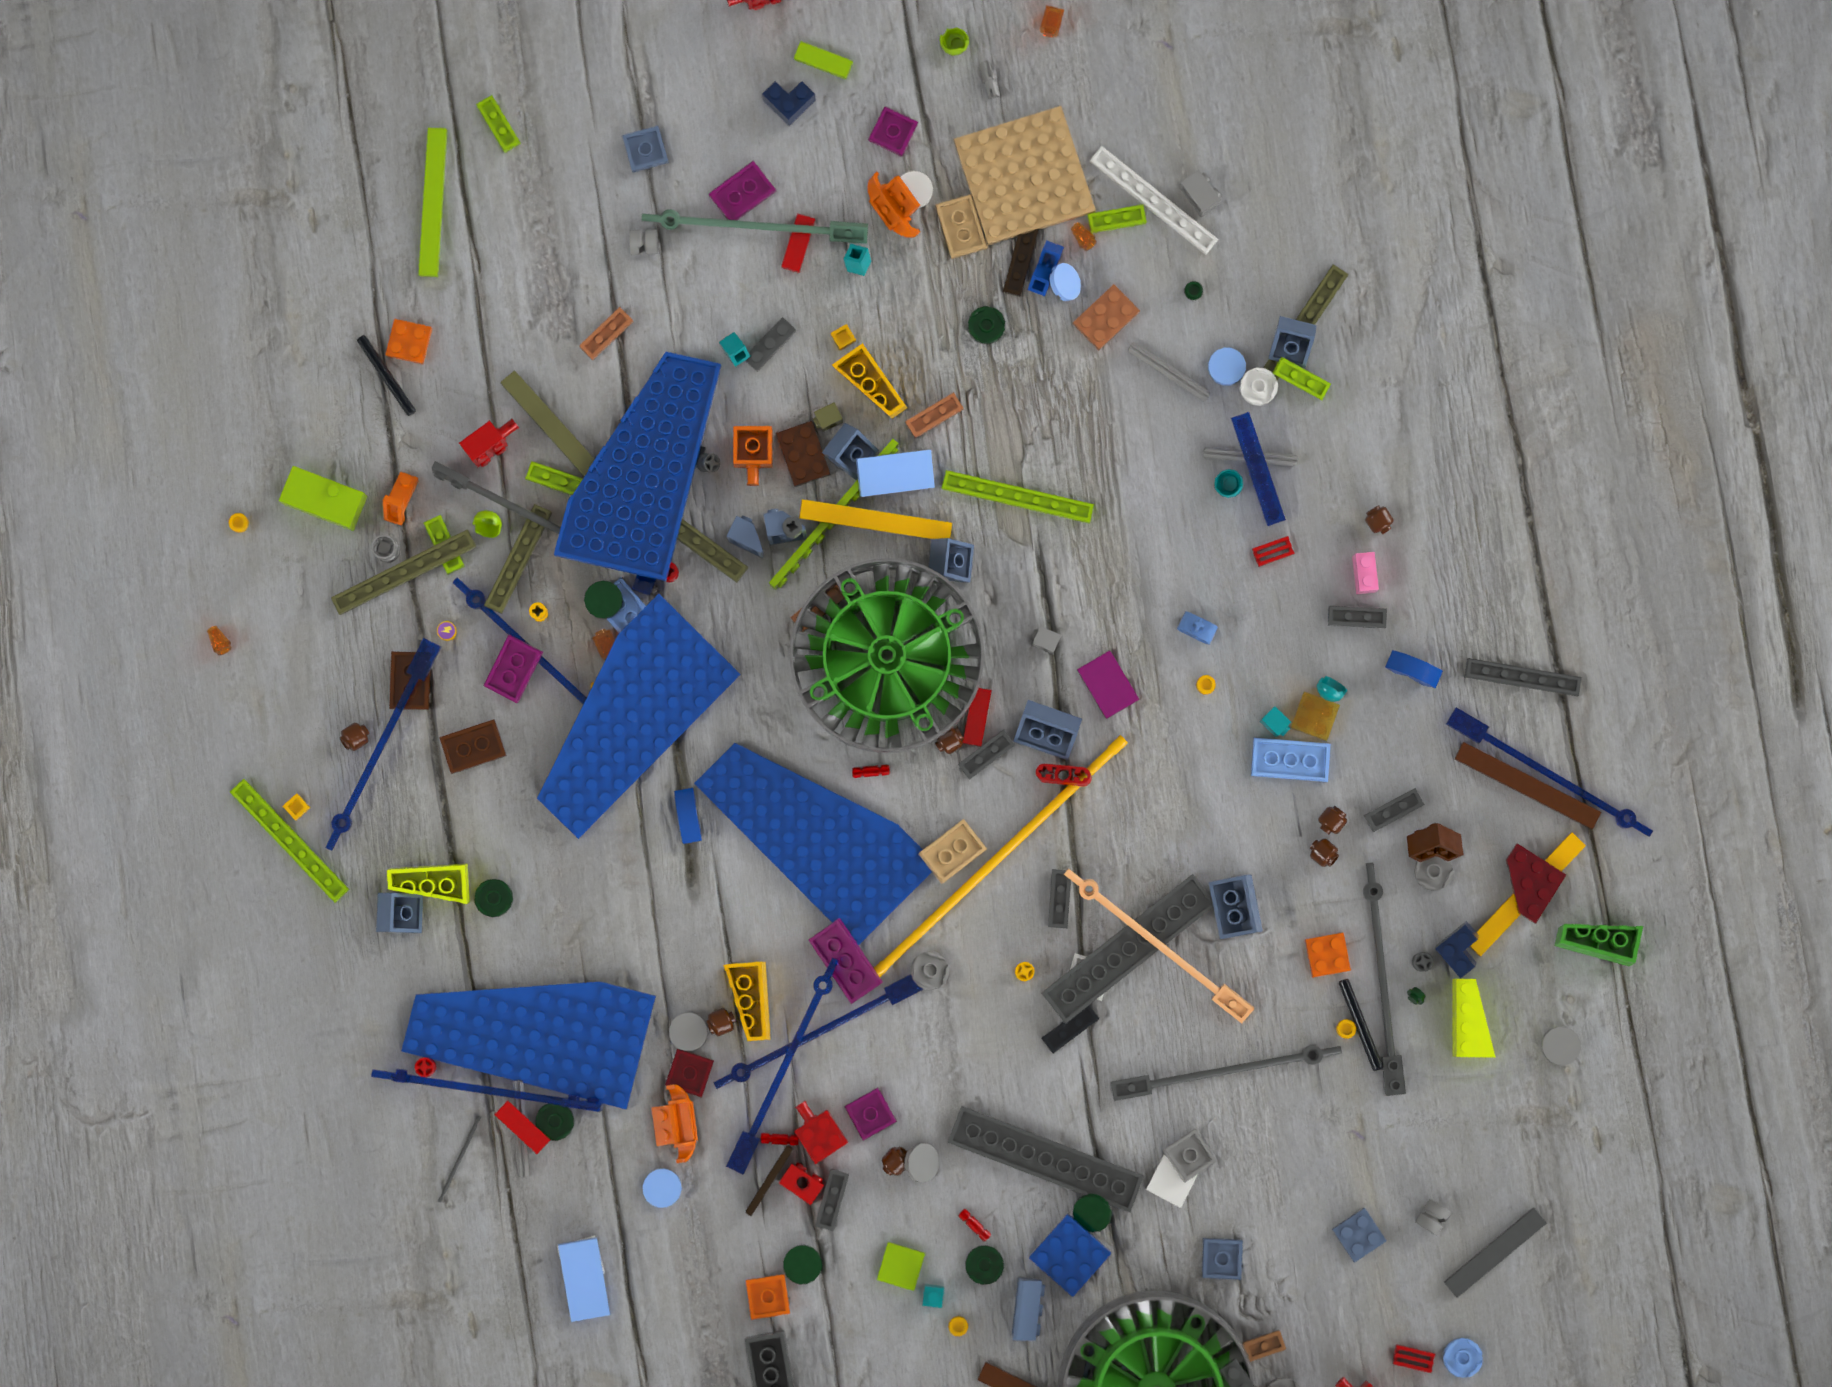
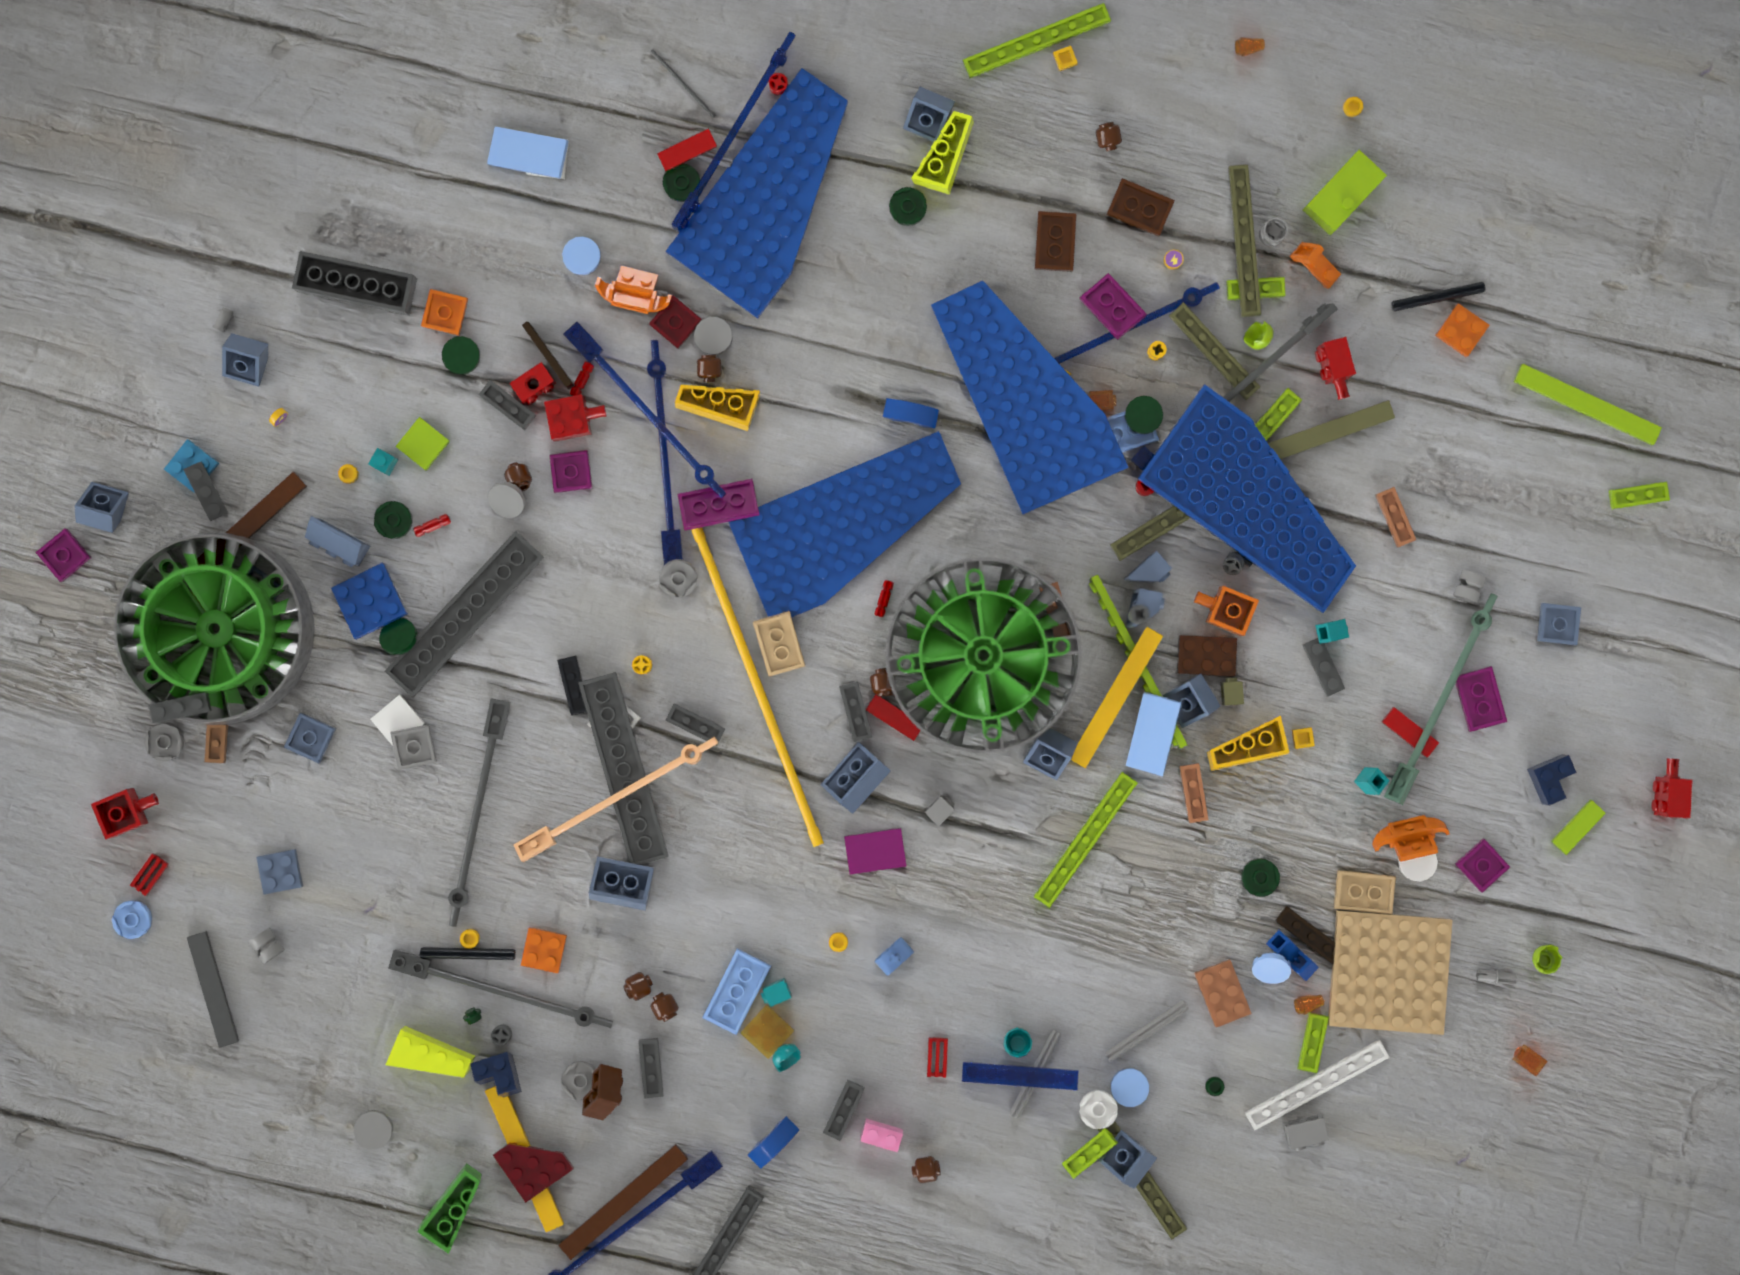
camera: 110 degrees right, 5 degrees up
(418, 669) = (1147, 218): clear blue bar -> none
(1058, 768) = (806, 789): red beam -> none

